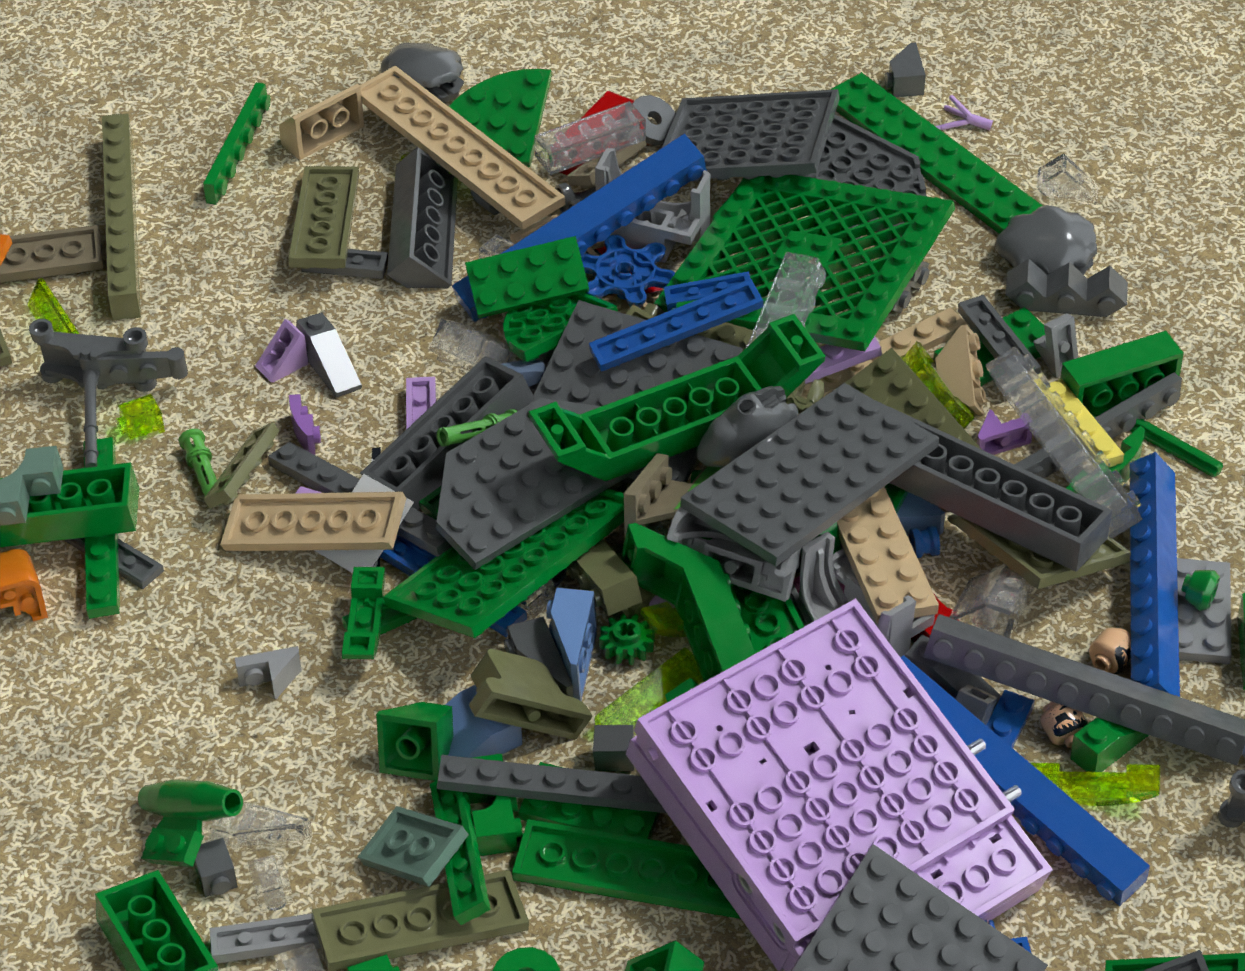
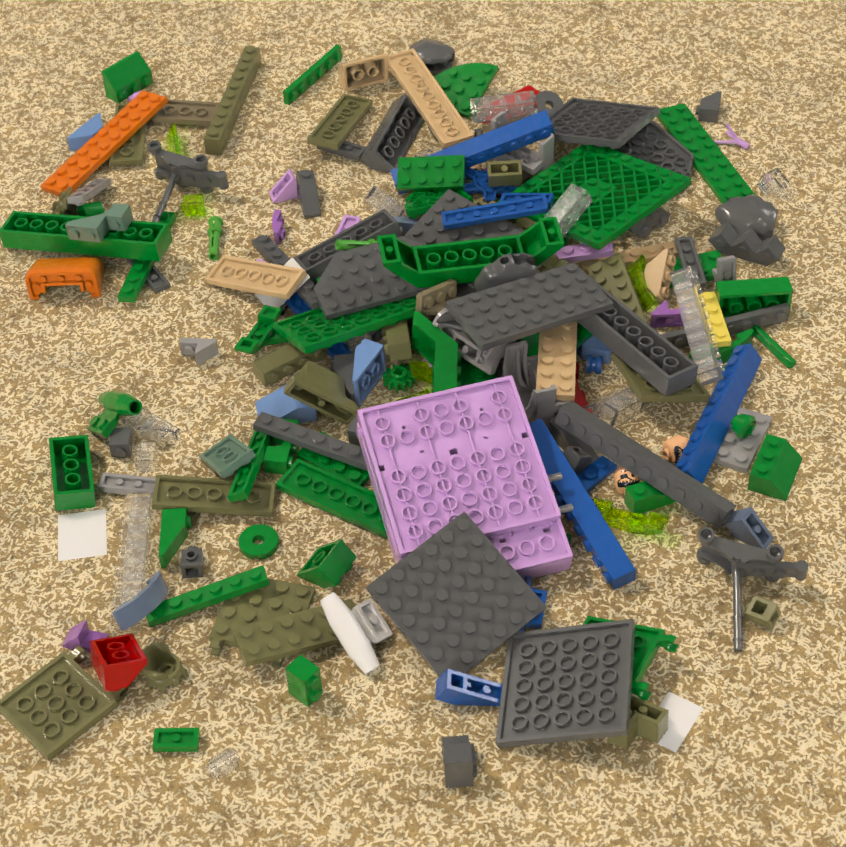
camera: 20 degrees right, 0 degrees up
(238, 470) = (229, 244): olive plate -> none
(414, 739) = (254, 398): green slope -> none
(421, 662) = (283, 363): none -> olive brick
(650, 252) = (504, 173): none -> olive brick

